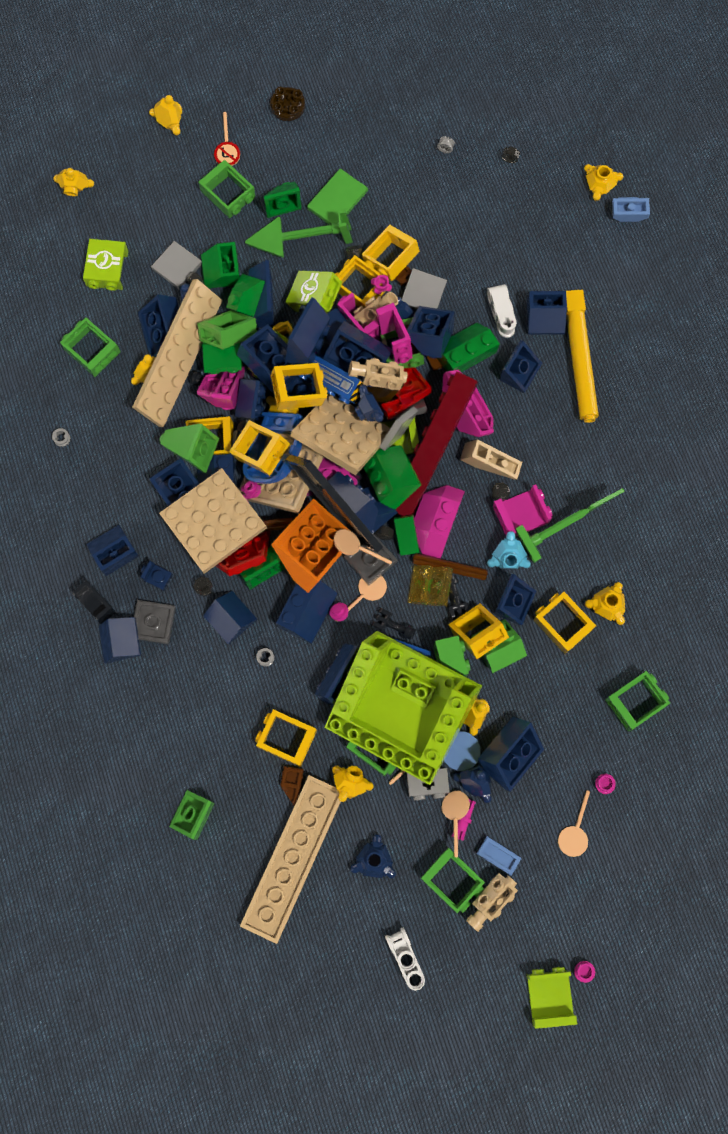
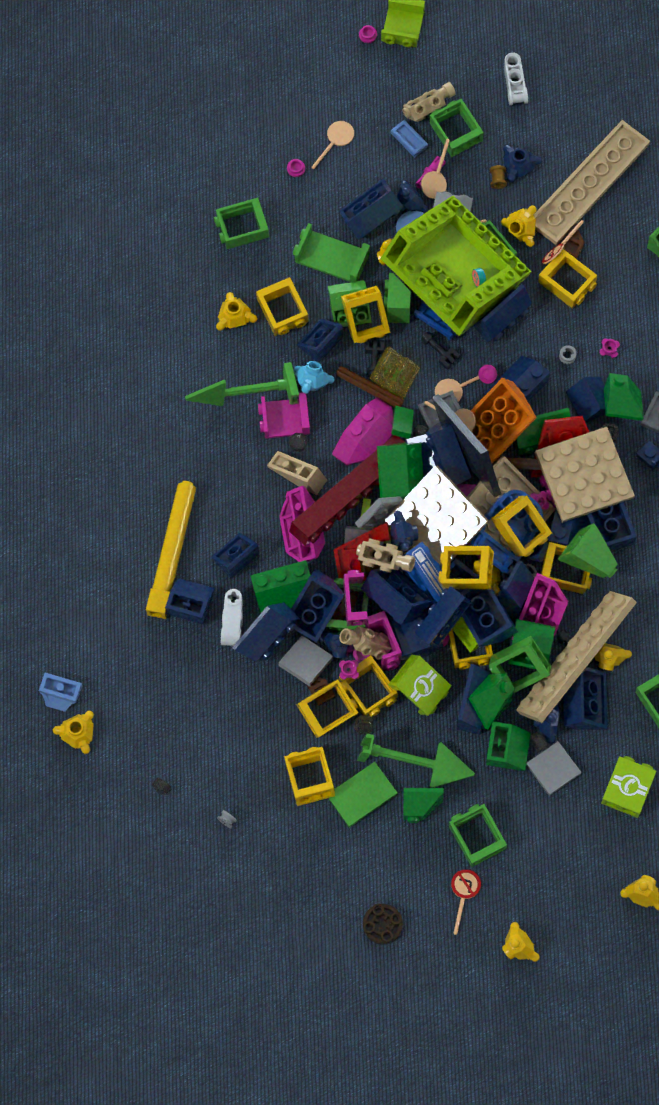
camera: 160 degrees left, 5 degrees down
(196, 618) = (622, 398): none -> green slope
(220, 676) = (609, 343): none -> dark pink plate
(307, 764) = (557, 249): none -> light nougat piece
(375, 698) = (478, 276): none -> teal tile
(379, 177) = (315, 792): none -> yellow window
(390, 834) = (498, 177): none -> pearl gold bush
(465, 295) = (267, 632): none -> dark blue slope
(535, 696) = (331, 255): none -> bright green panel

